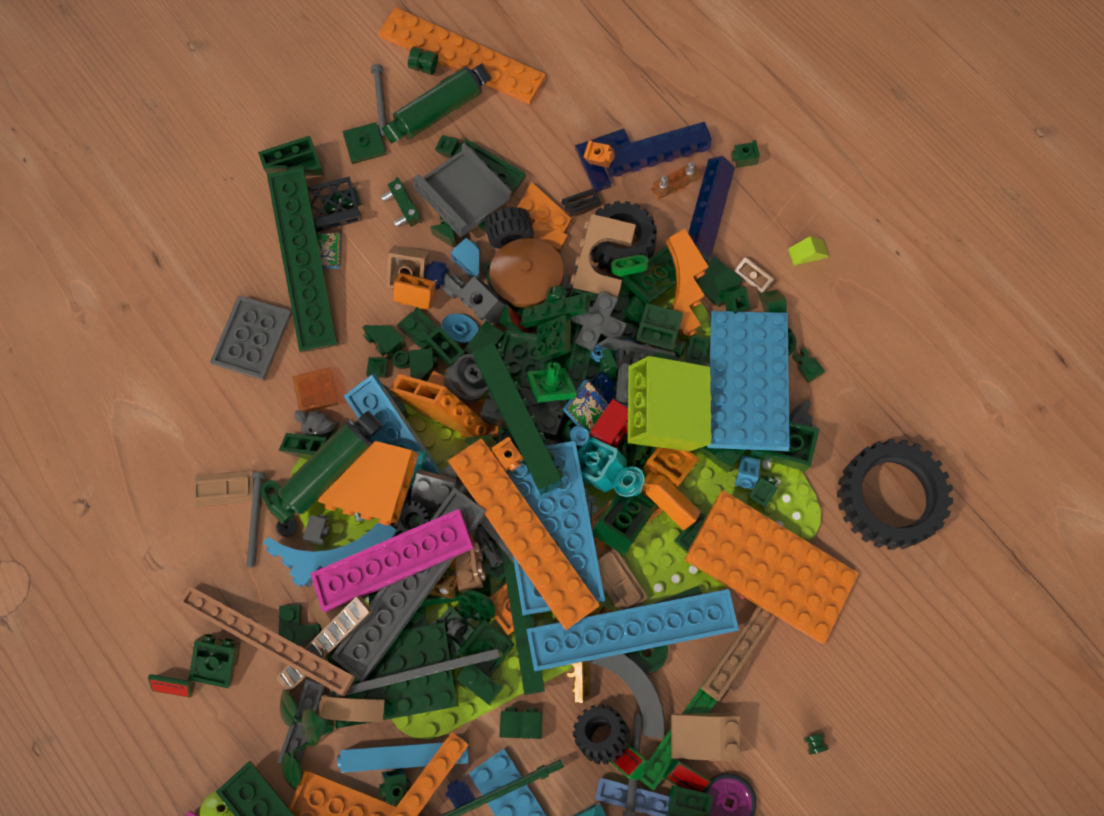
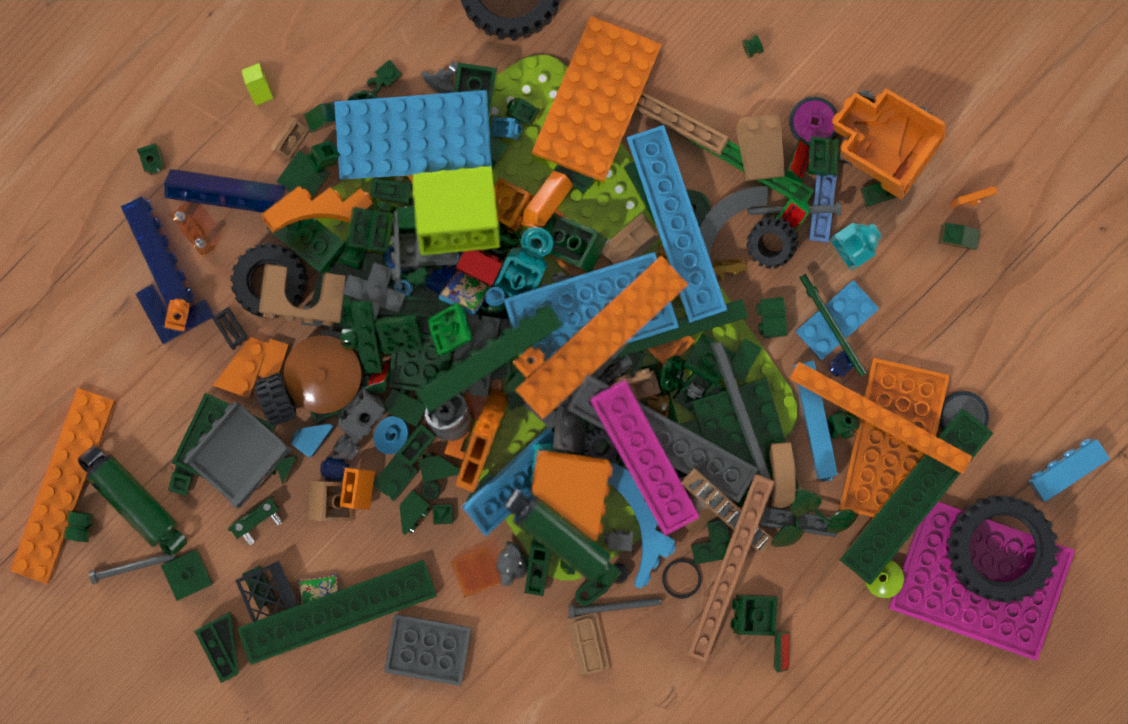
camera: 95 degrees left, 15 degrees up
(251, 586) = (679, 596): none -> black piece
(630, 265) = (307, 267): green plate -> none

